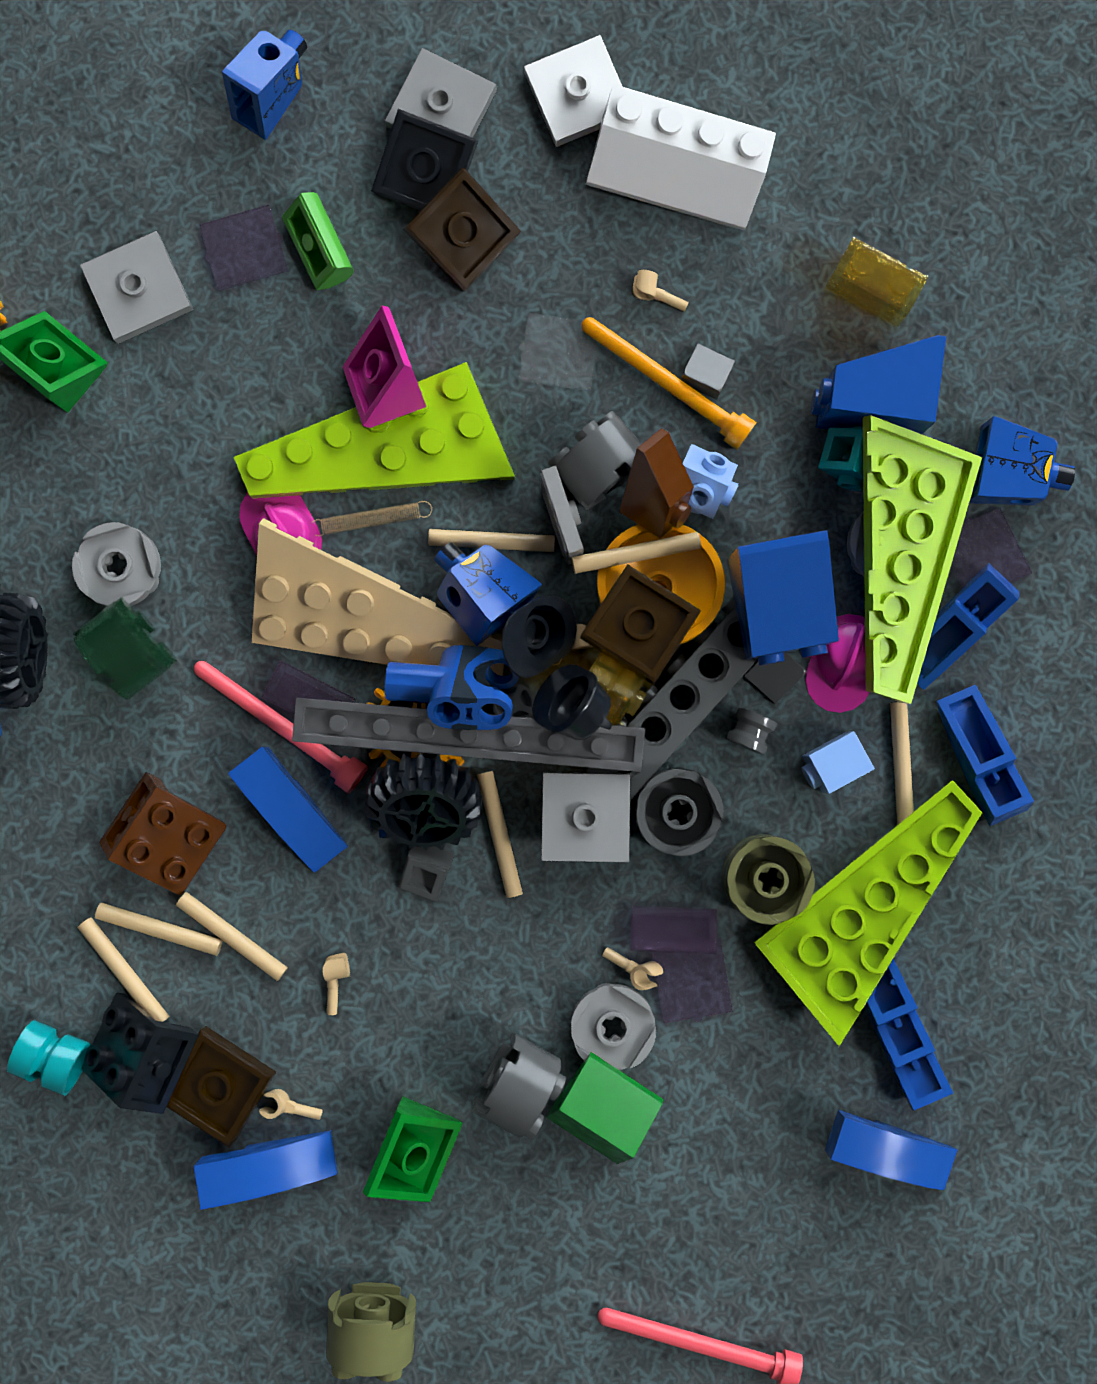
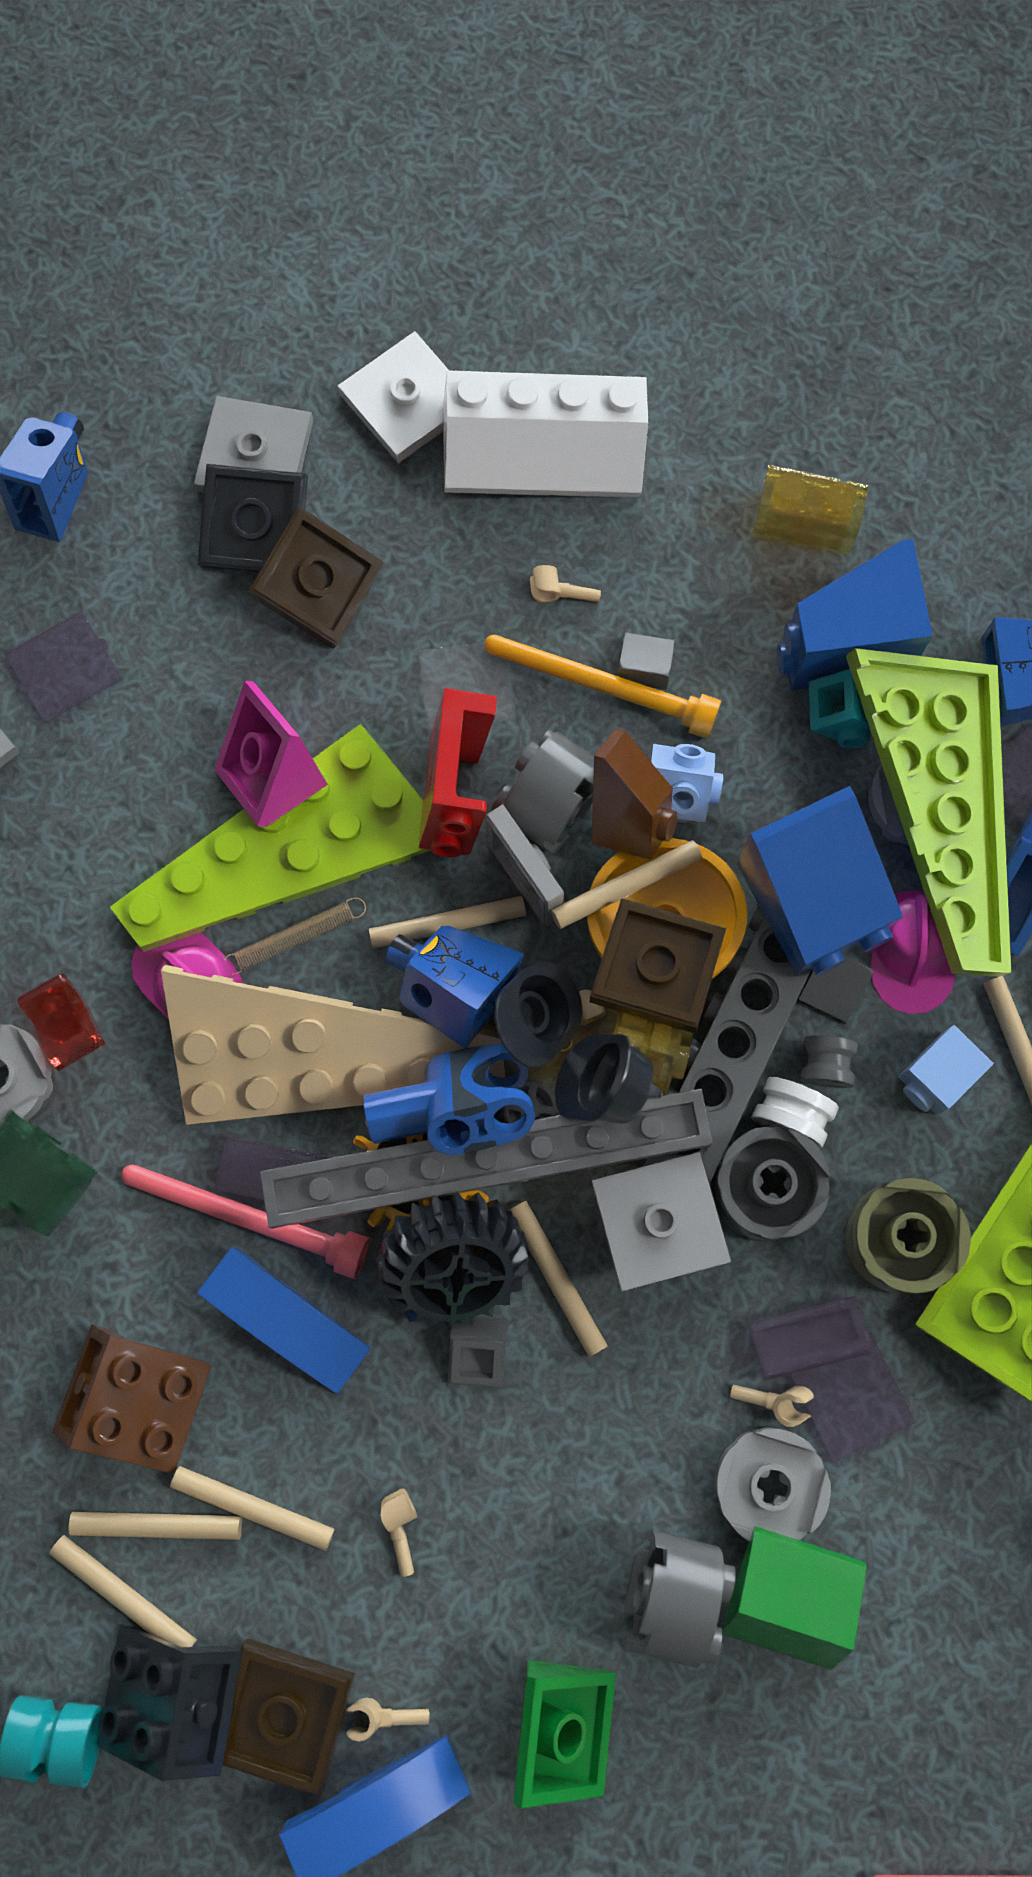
camera: 15 degrees left, 10 degrees down
(176, 537) = (61, 1021): none -> clear red bracket
(317, 241) = (149, 635): bright green brick -> none
(539, 392) = (458, 734): none -> red panel
(713, 762) = (795, 1108): none -> white wheel

